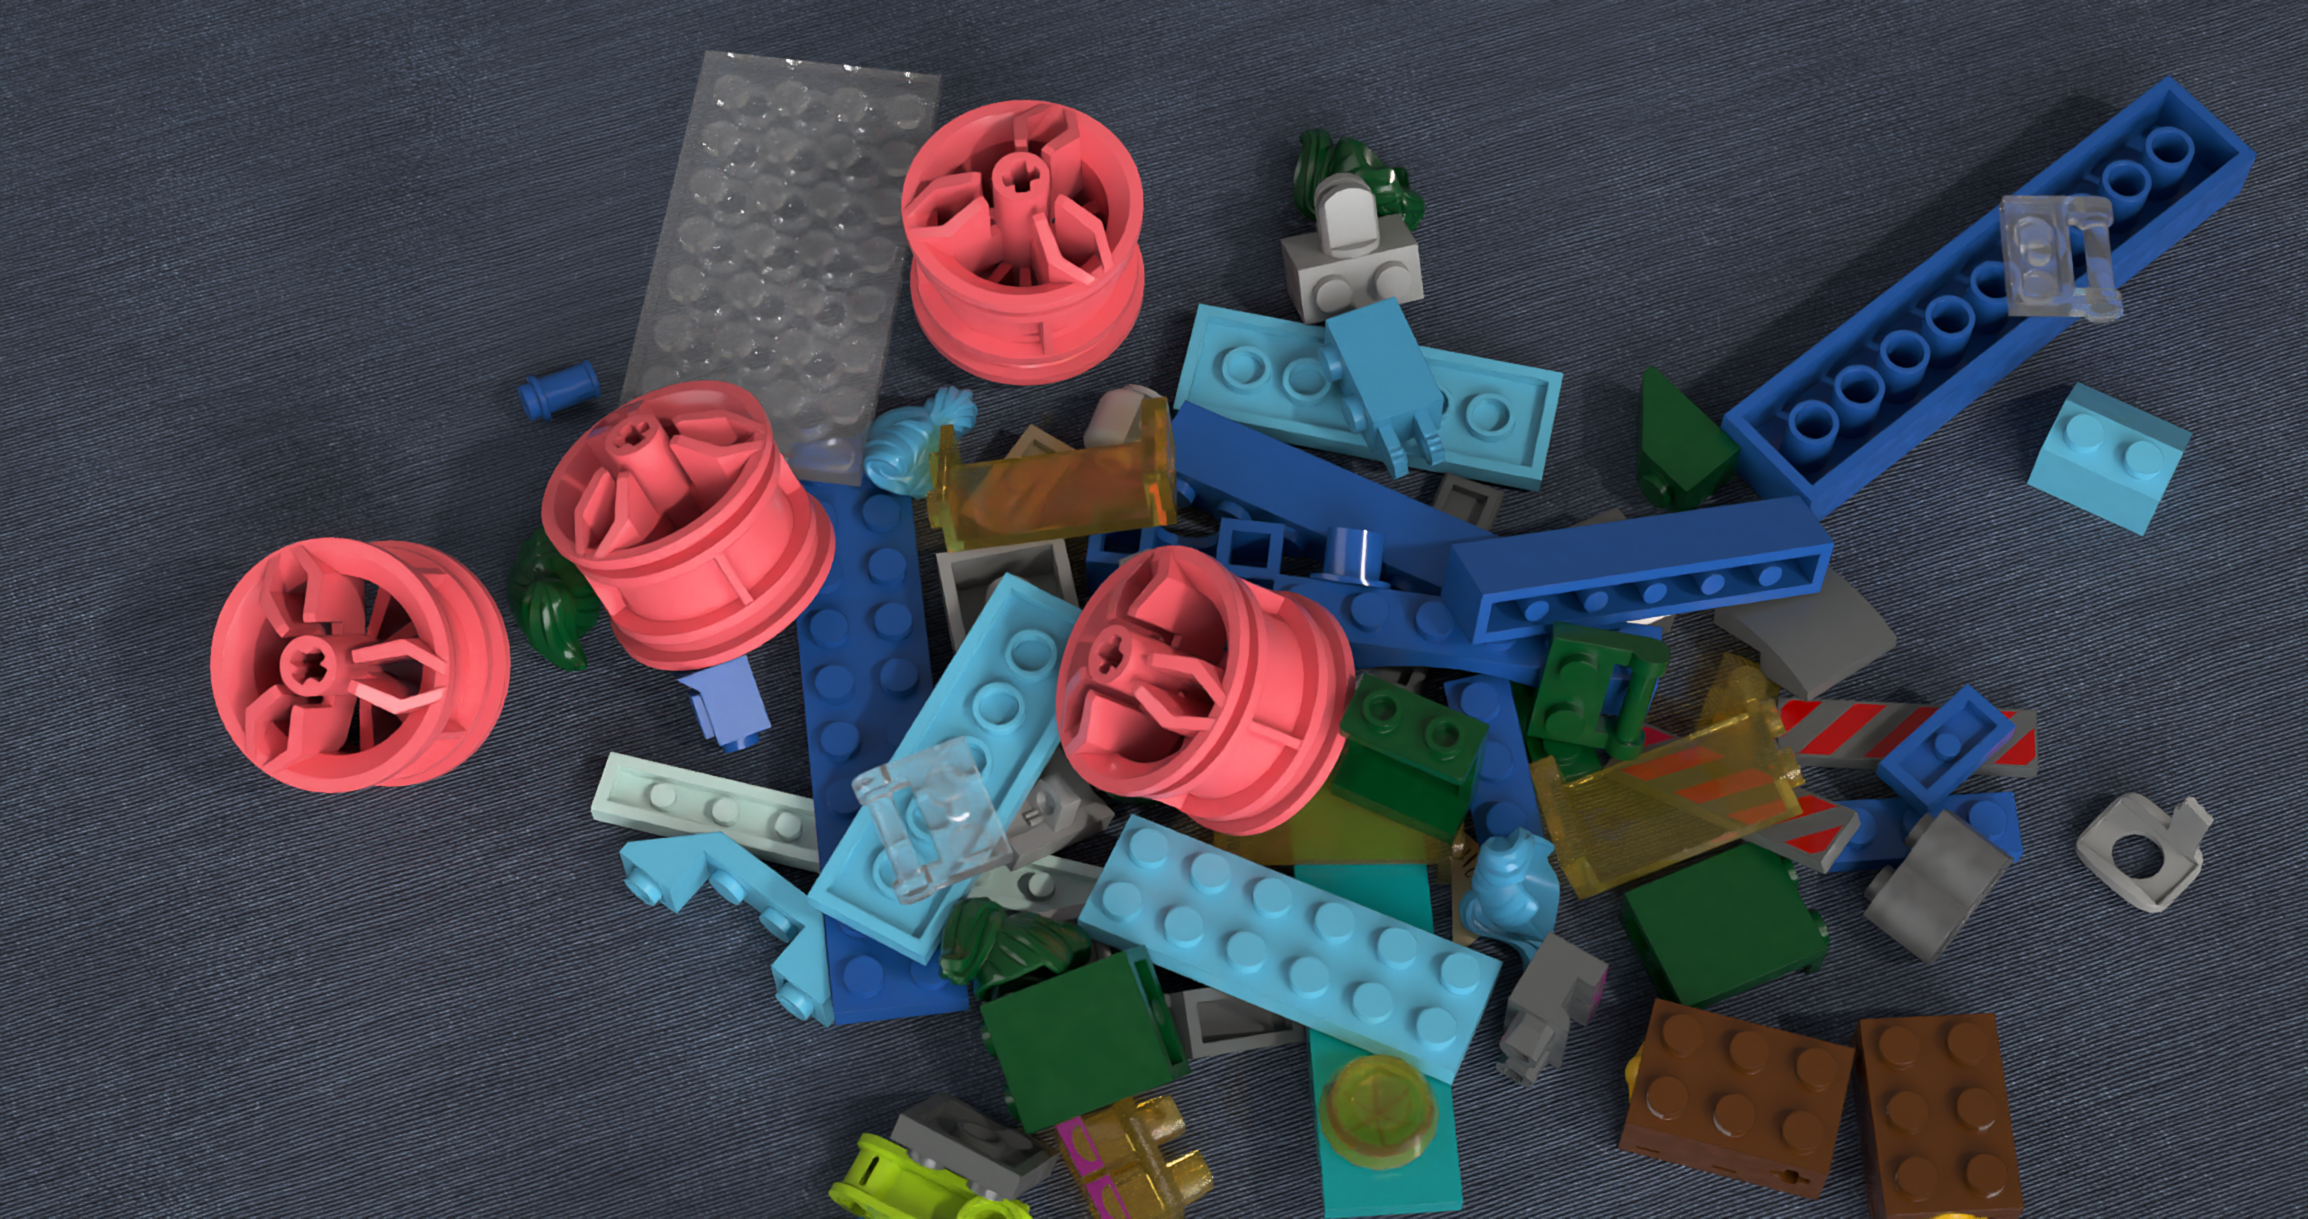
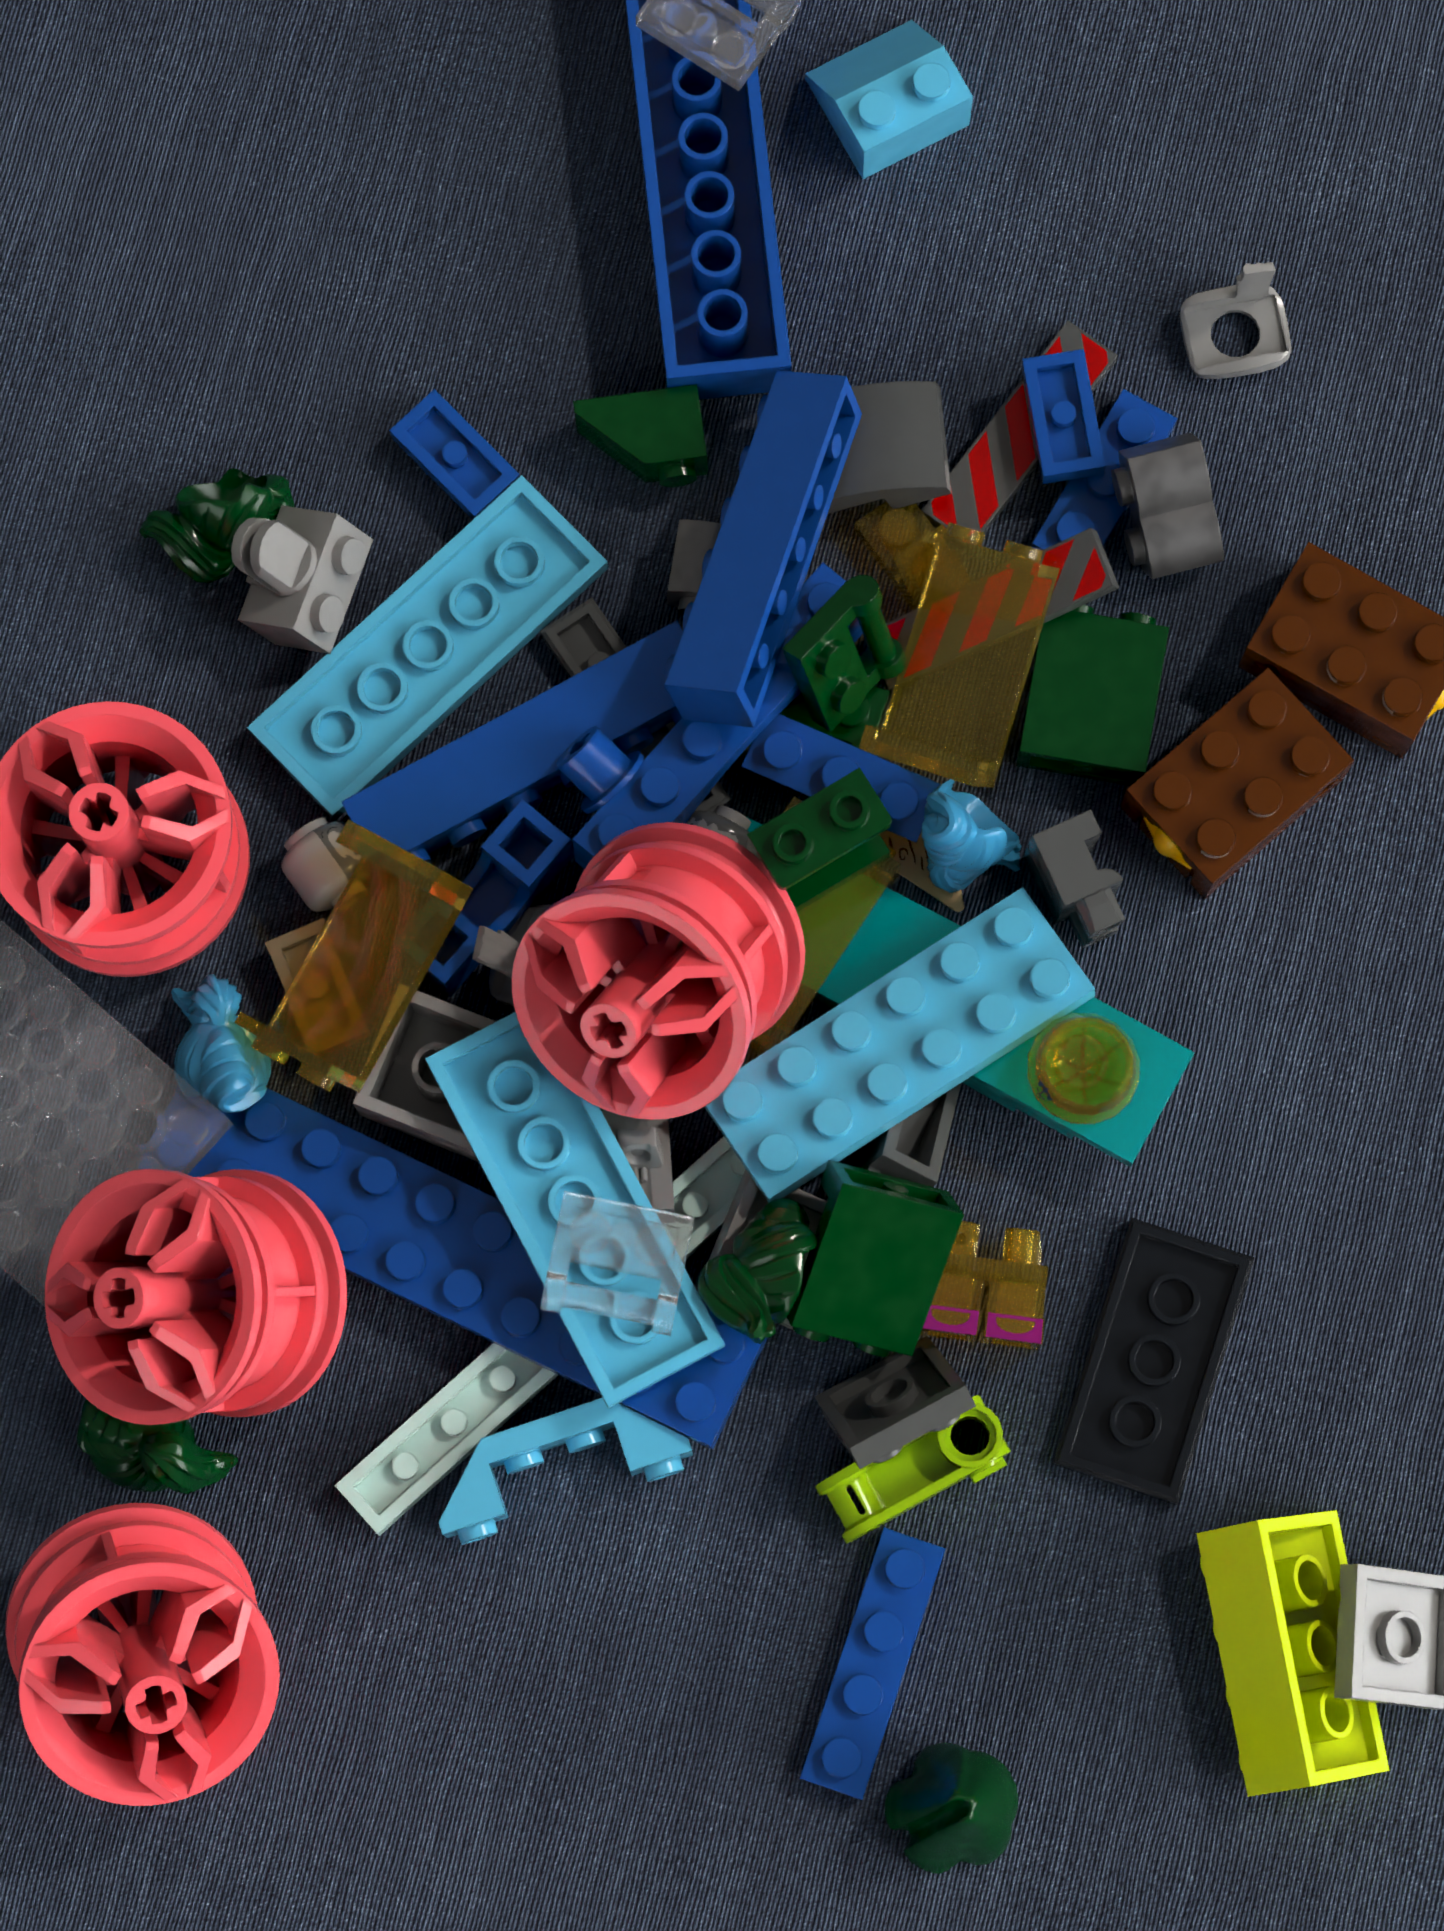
camera: 55 degrees left, 15 degrees up
(726, 703) = (365, 1363): window -> none
(1384, 383) = (443, 629): dark azure hinge -> none
(1543, 314) = (453, 454): none -> blue plate

